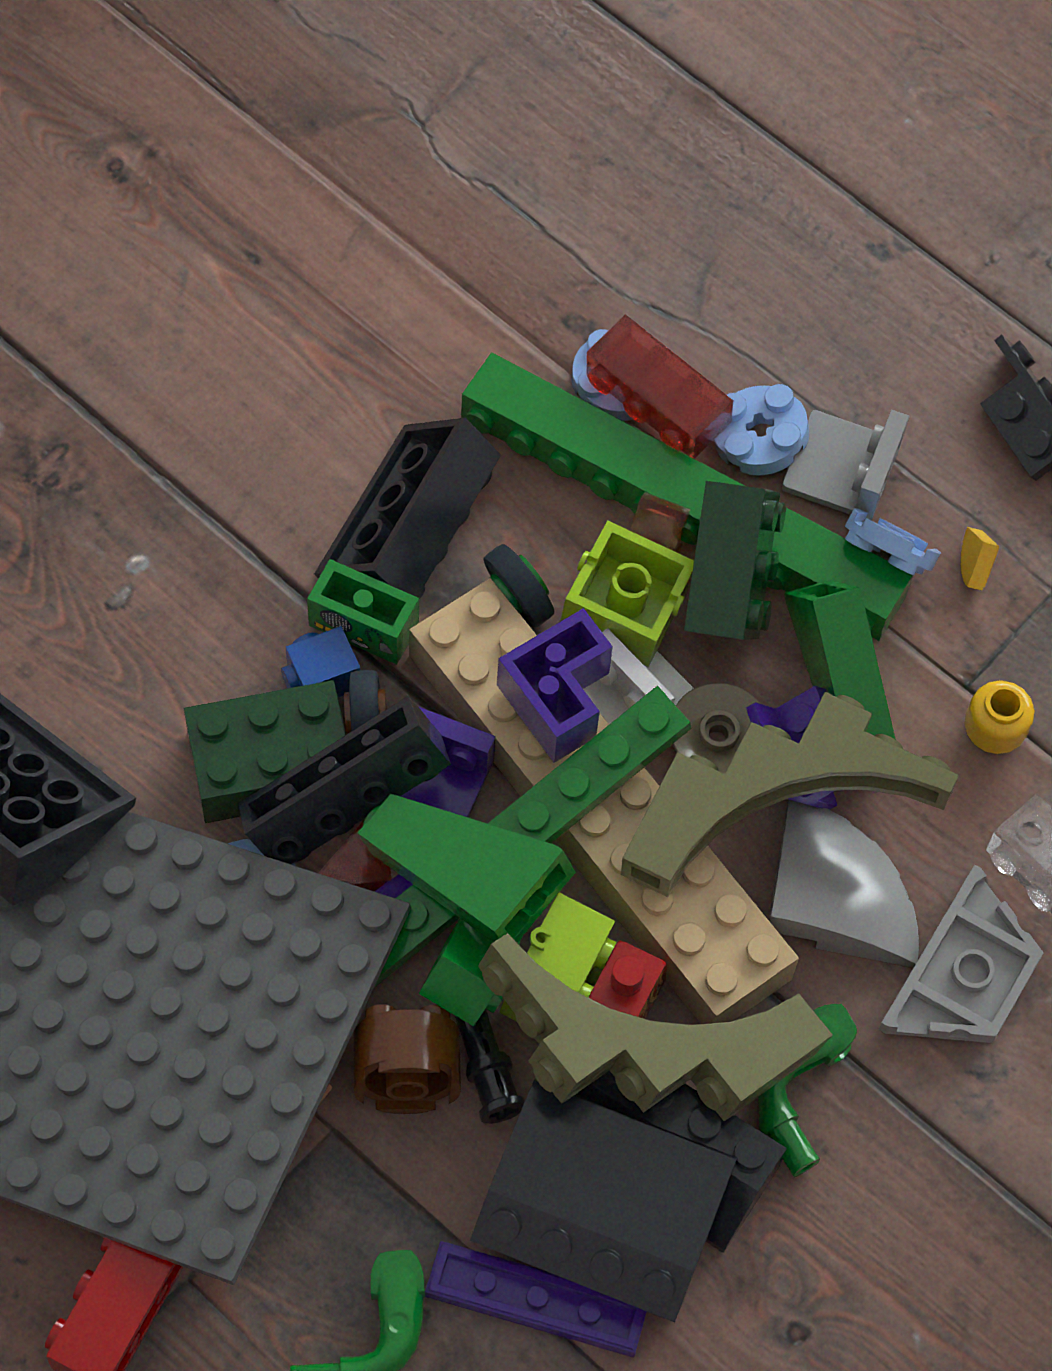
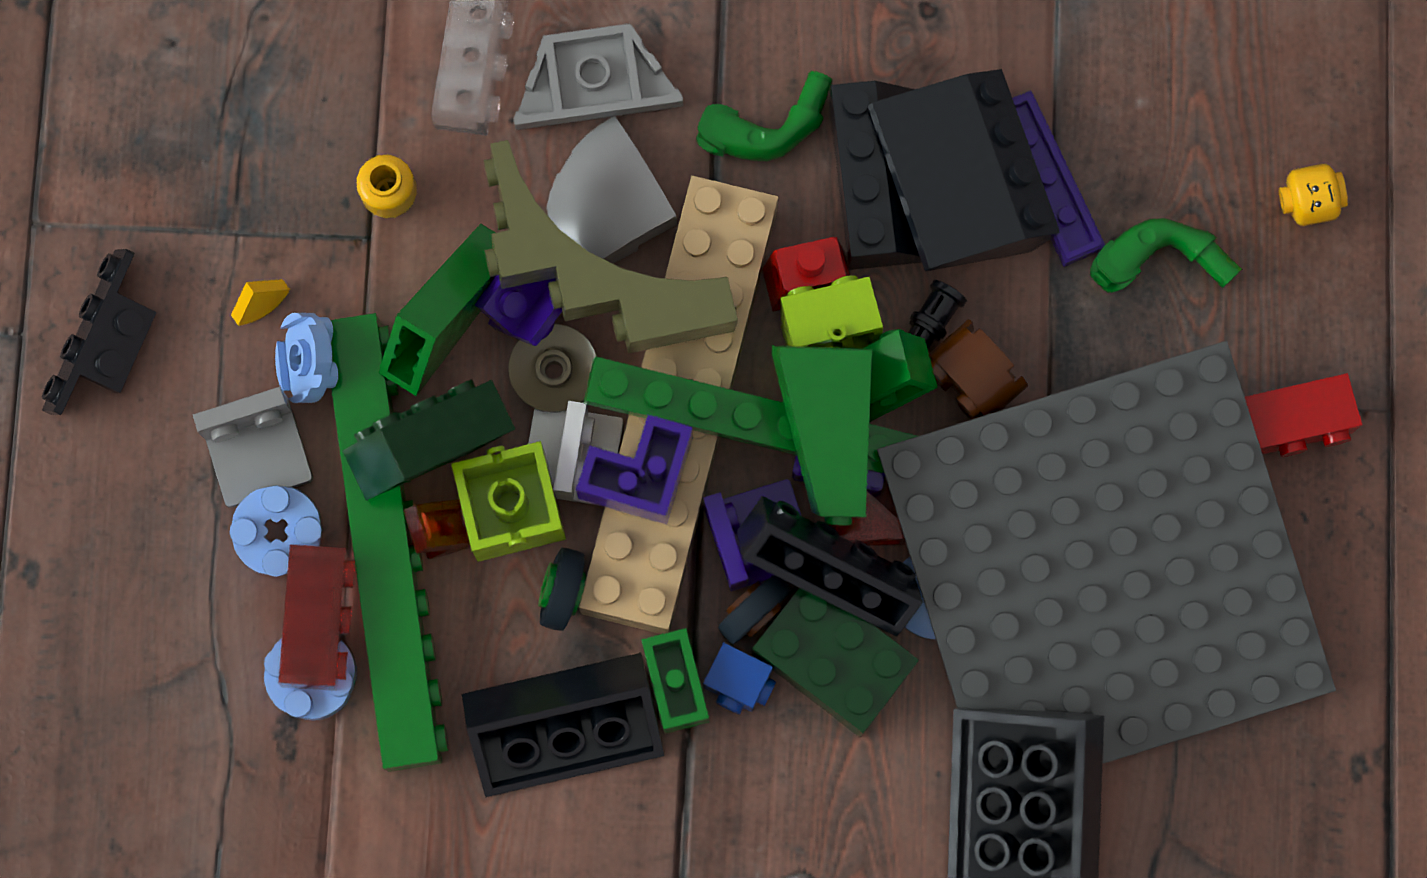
camera: 125 degrees left, 15 degrees up
(649, 1058) = (818, 152): olive arch -> none

